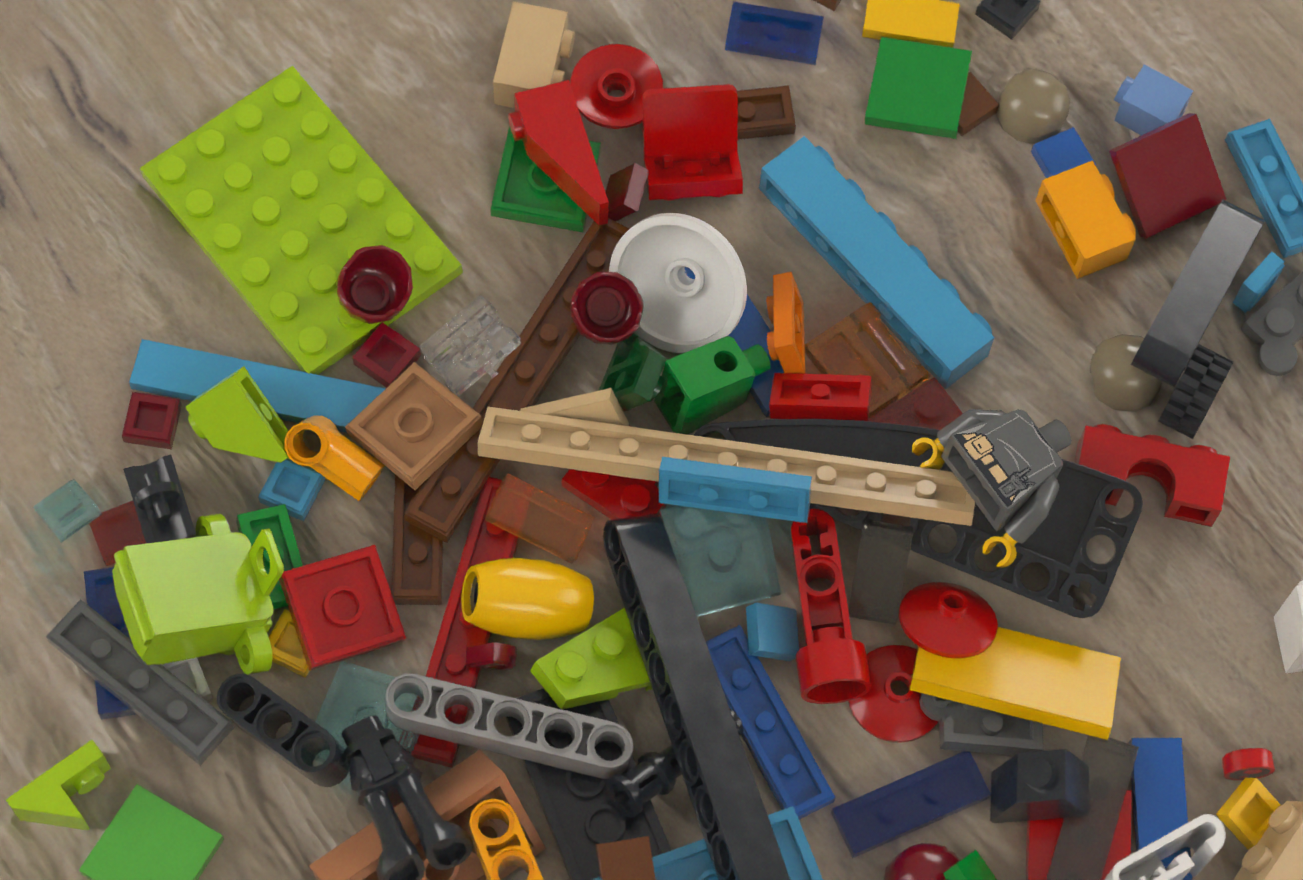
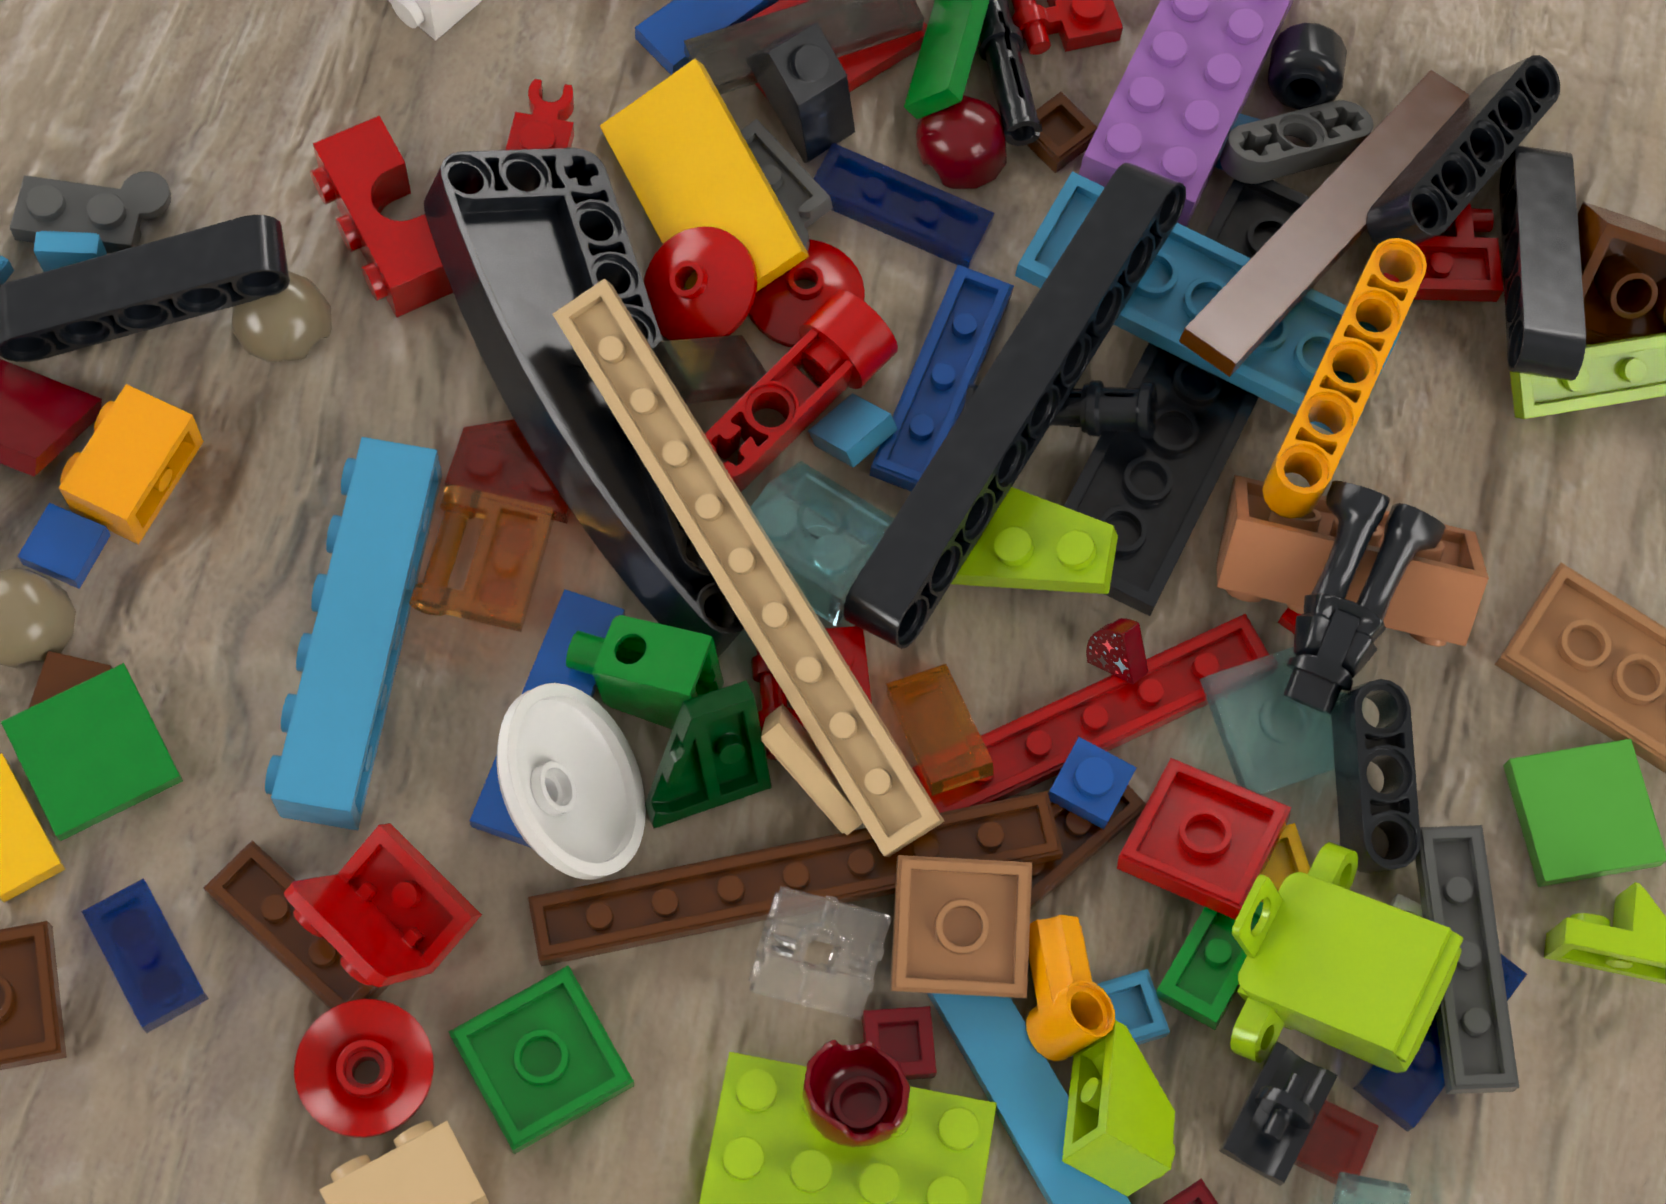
camera: 135 degrees left, 0 degrees up
(430, 571) = (1091, 783): none -> blue plate
(490, 707) = (1182, 588): light grey beam -> none
(527, 599) = (1040, 658): yellow piece -> none
(559, 145) = (496, 1062): red slope -> none
(606, 308) = (663, 832): dark red hair -> none
(626, 191) = (495, 949): dark red tile -> none
(734, 489) = (771, 521): dark azure tile -> none
(787, 315) = (497, 670): orange plate -> none
(820, 396) = (575, 550): red plate -> none
(1004, 467) = (533, 279): dark grey torso -> none
(1140, 615) = (546, 125): none -> red plate
(1195, 391) = (286, 200): black tyre -> none

